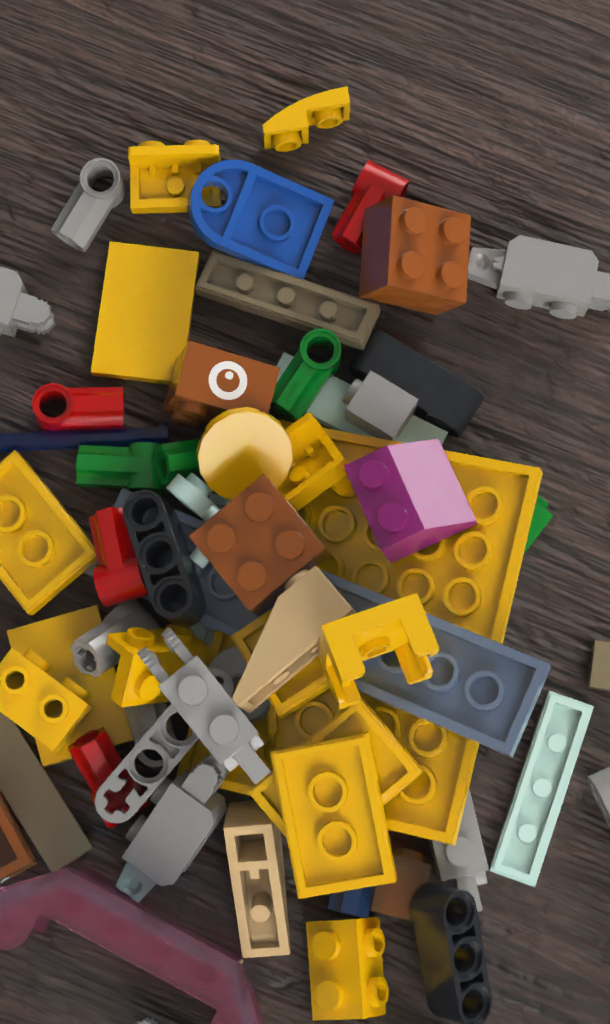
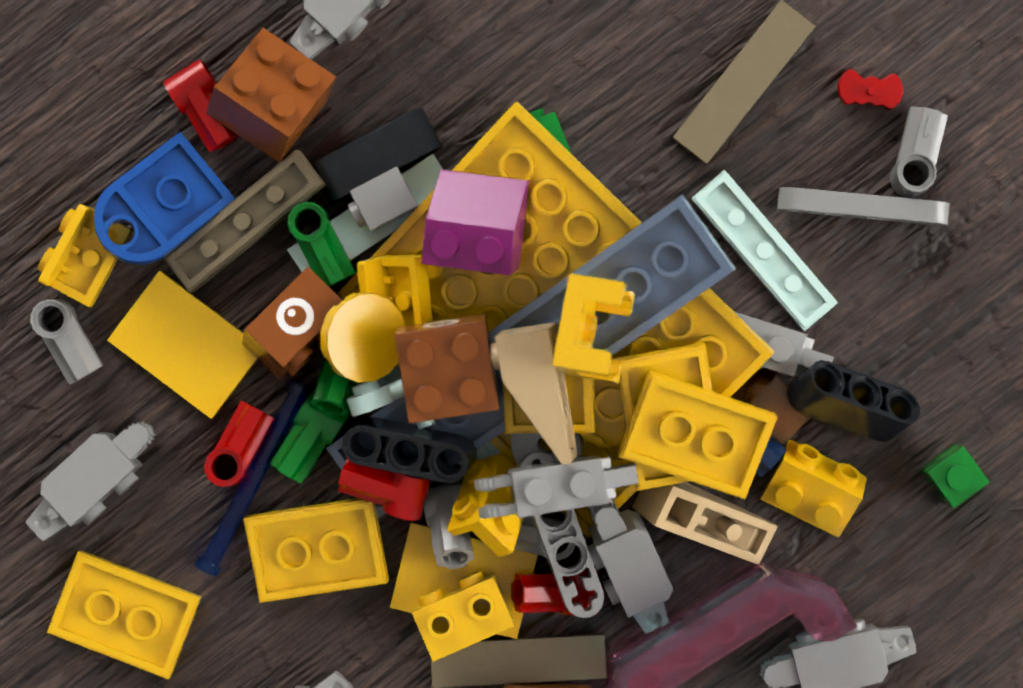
camera: 55 degrees left, 10 degrees up
(291, 125) = (93, 129): yellow slope -> none

